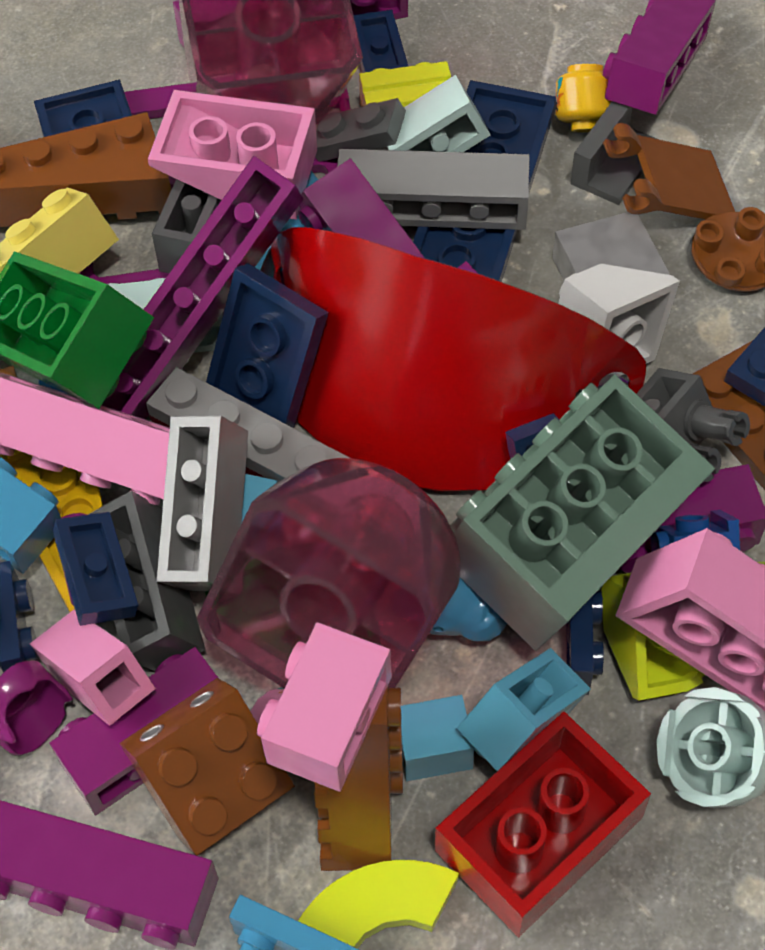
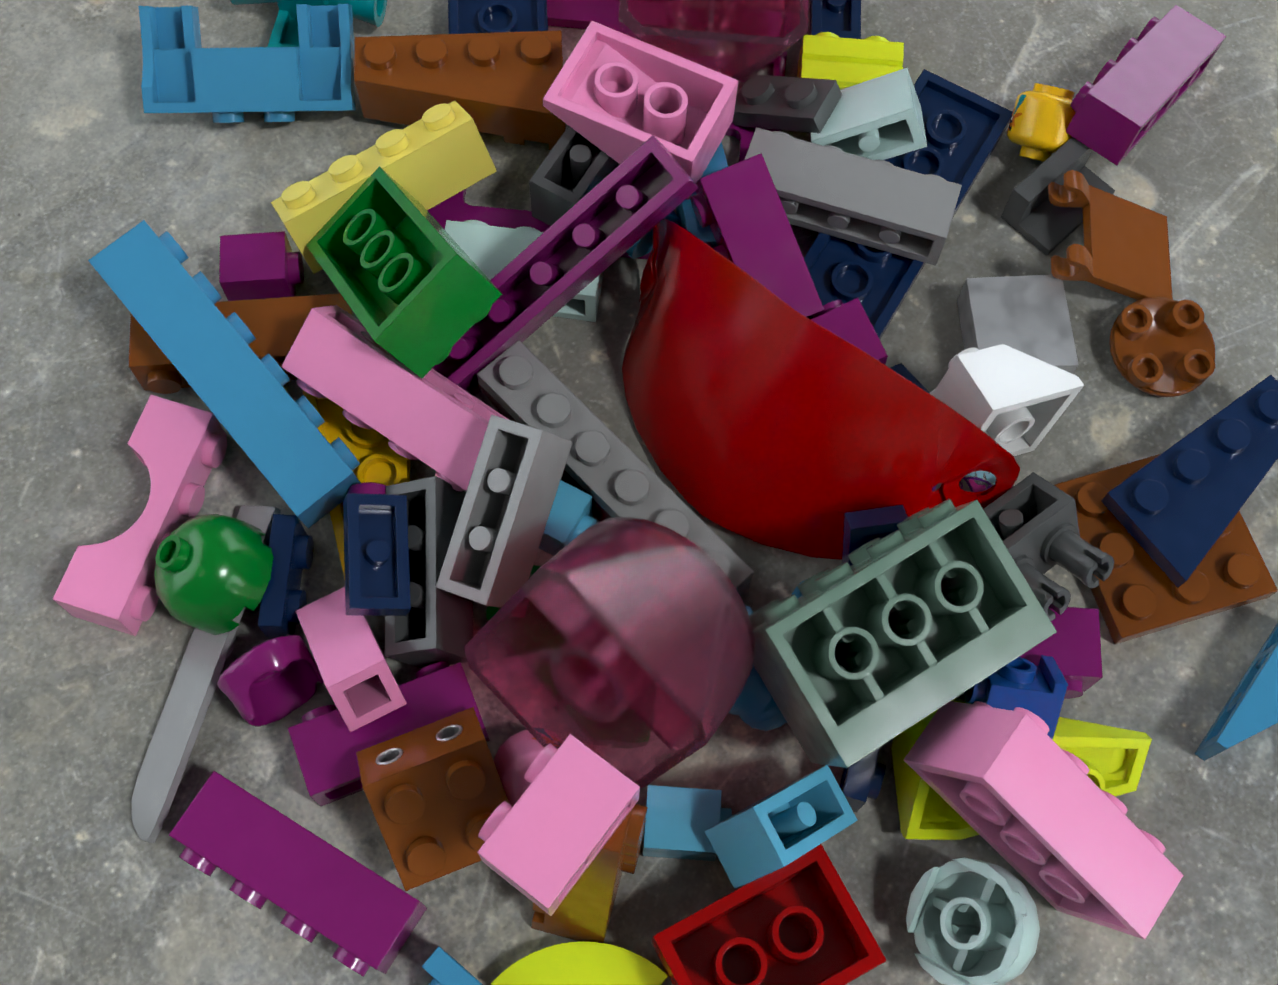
camera: 10 degrees right, 10 degrees up
(266, 344) = (616, 344): dark blue plate -> none

